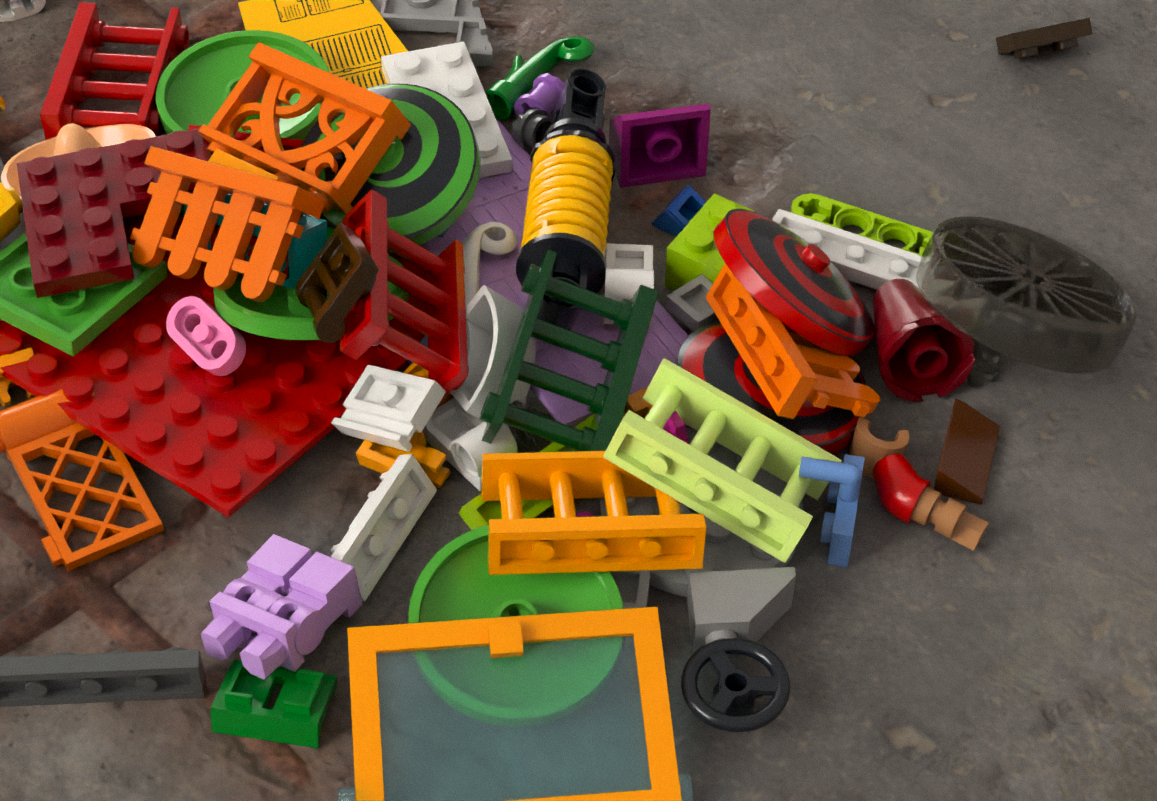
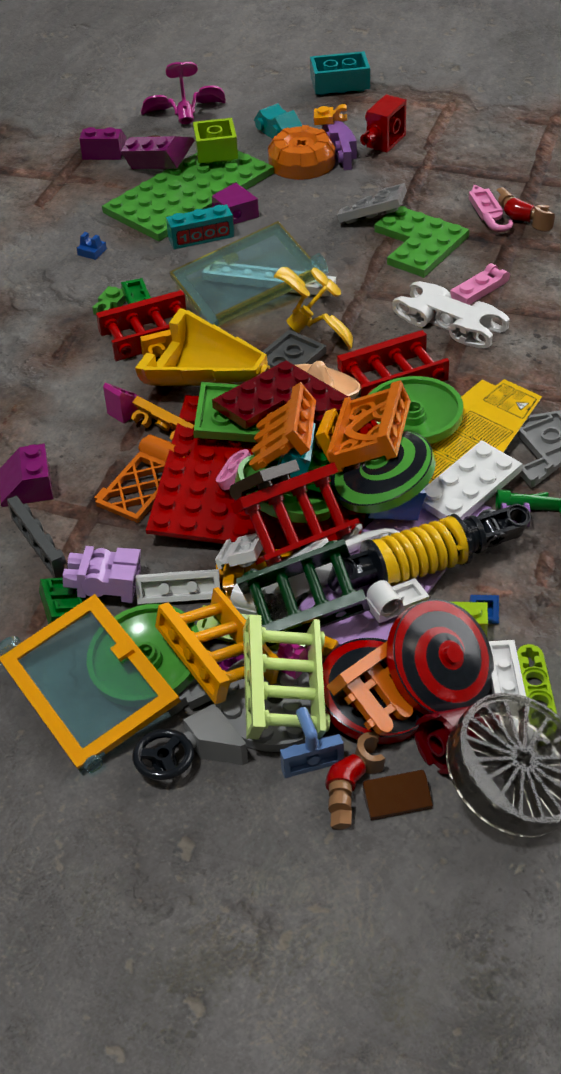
camera: 65 degrees right, 5 degrees down
(660, 145) = (518, 570): magenta slope -> none

